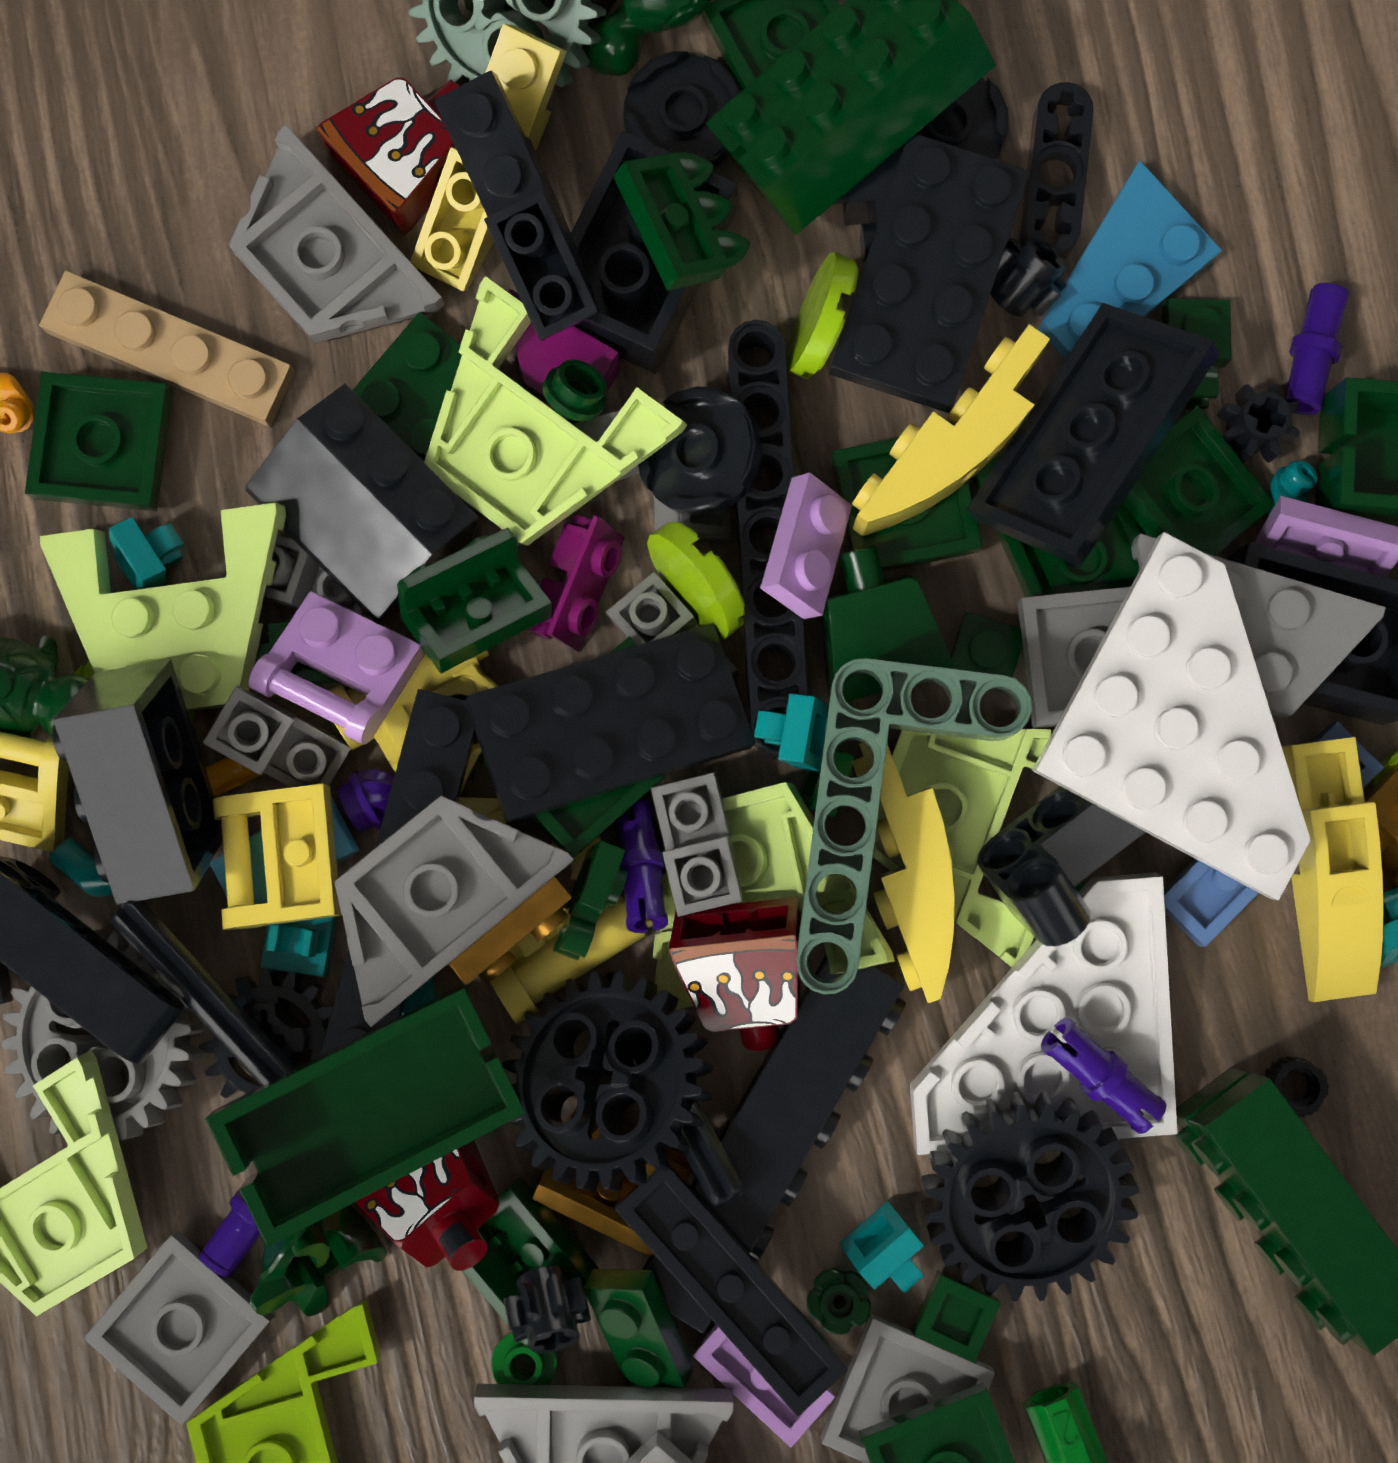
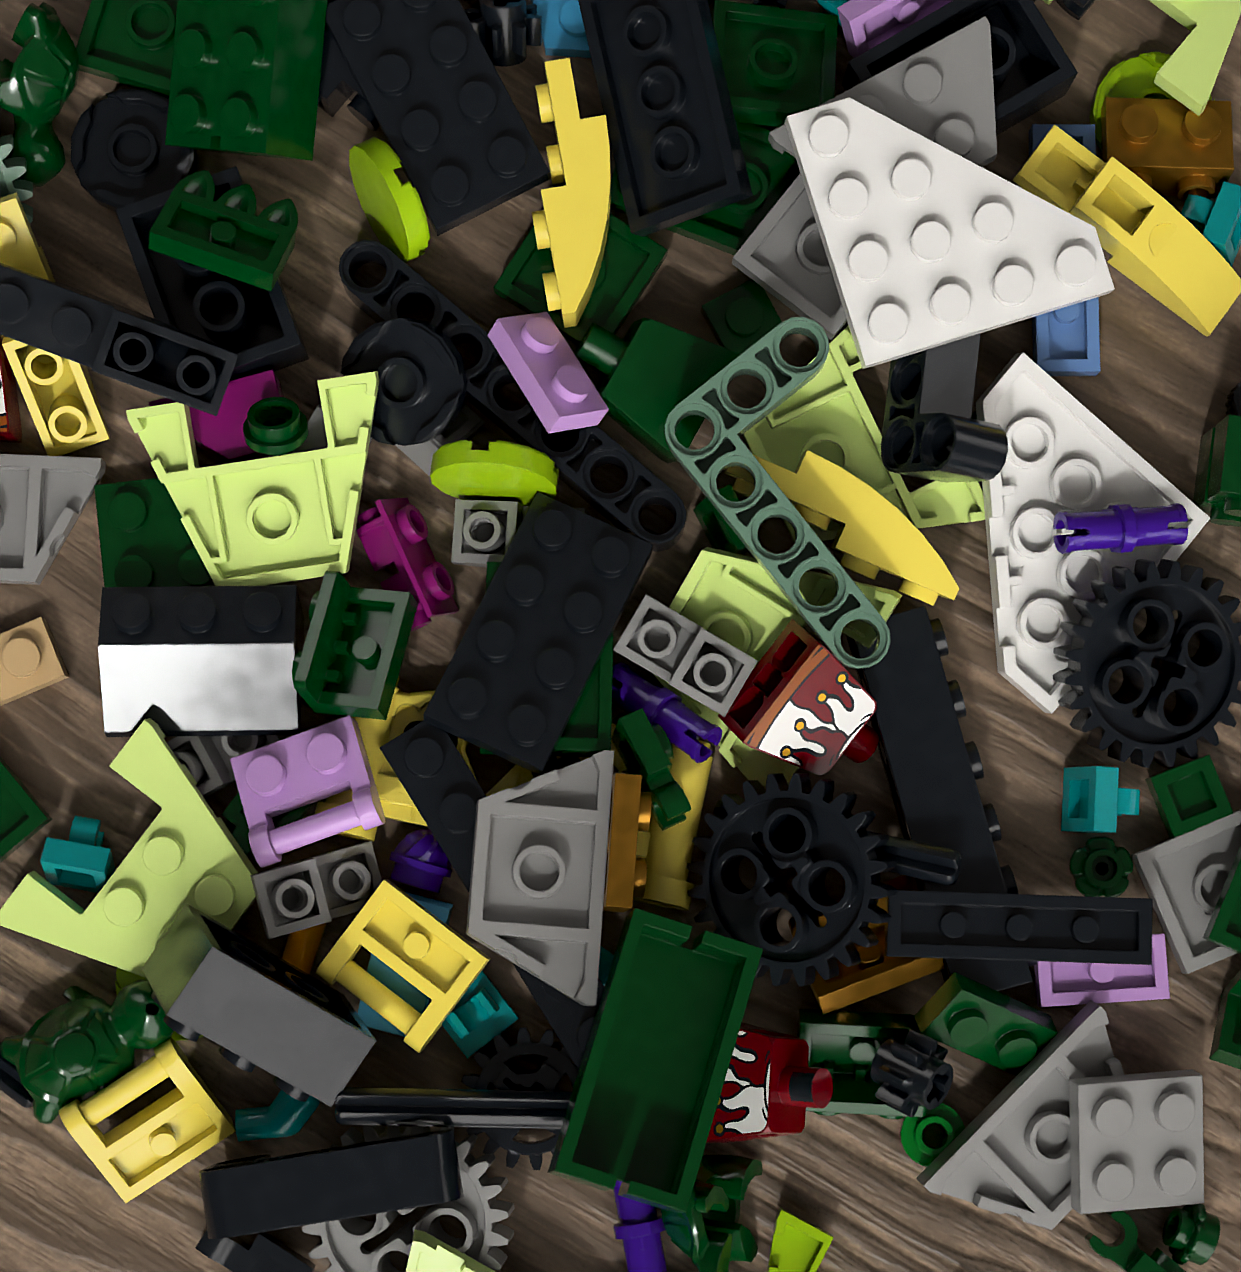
camera: 50 degrees left, 0 degrees up
(798, 732) = (677, 505): teal tile -> none

